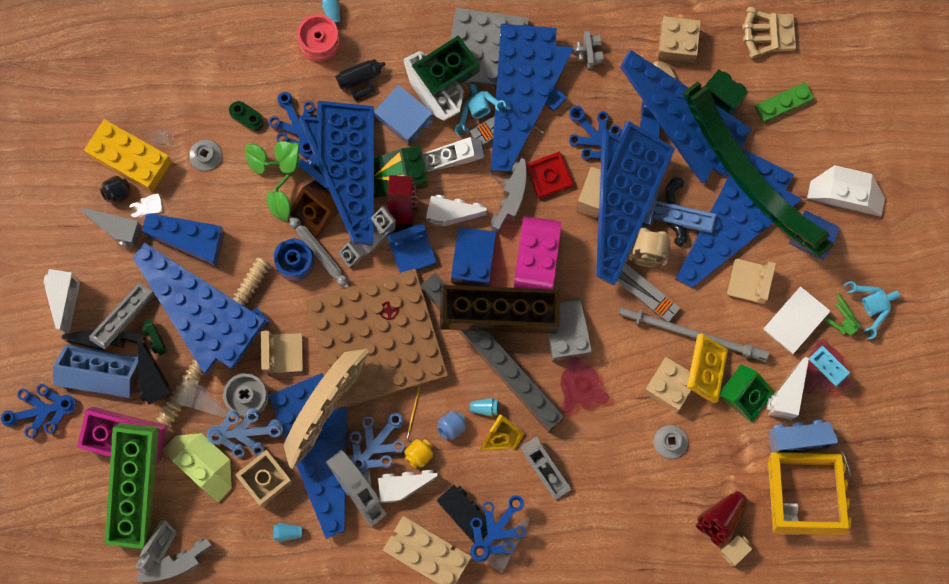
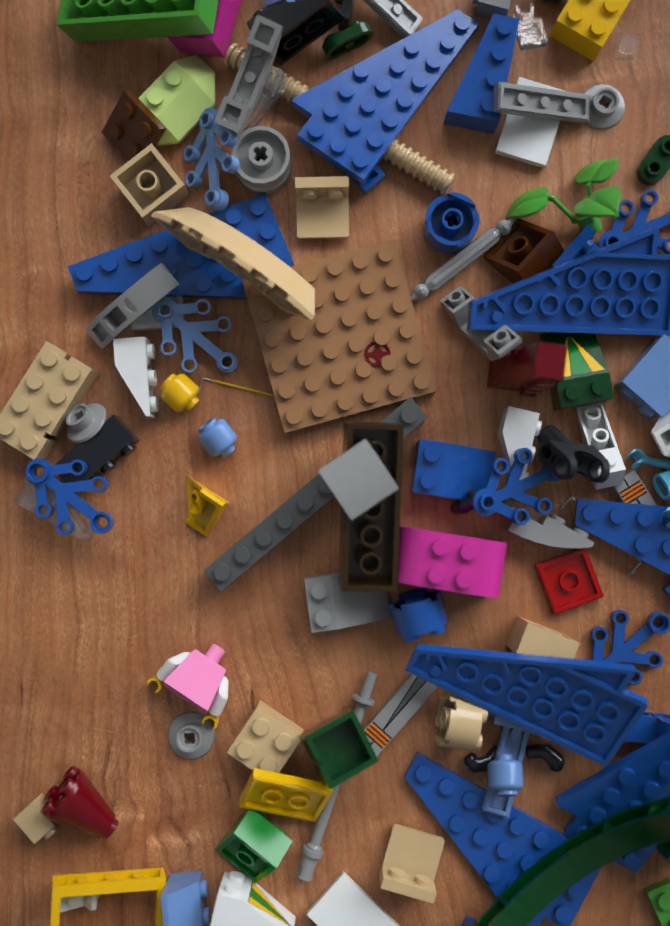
camera: 95 degrees right, 10 degrees up
(156, 546) = (62, 44): light grey hinge -> none
(170, 568) = (41, 71): light grey slope -> none
(190, 400) = (251, 76): none -> light grey slope
(207, 197) = (541, 103): none -> light grey tile
(217, 204) = (528, 137): none -> white tile
(221, 492) = (132, 126): none -> reddish brown plate
(286, 532) = (81, 216): medium azure cone -> none
(411, 248) = (464, 386): blue bracket -> none
(446, 520) = (85, 421): none -> light grey piece
(461, 178) = (563, 456): none -> black connector
(482, 313) = (358, 479): none -> light grey slope
(484, 212) = (513, 489): none -> blue plant
(485, 407) = (242, 484): medium azure cone -> none
(498, 248) = (463, 506): none -> black arm
(545, 467) = (158, 562): light grey slope -> none
(575, 277) = (418, 613): none -> blue brick
(580, 385) = (270, 614): clear pink tile -> none
(629, 435) = (196, 680): none -> bright pink torso
(670, 329) = (339, 748): none -> dark green piece
(686, 216) = (505, 775): none -> medium blue head

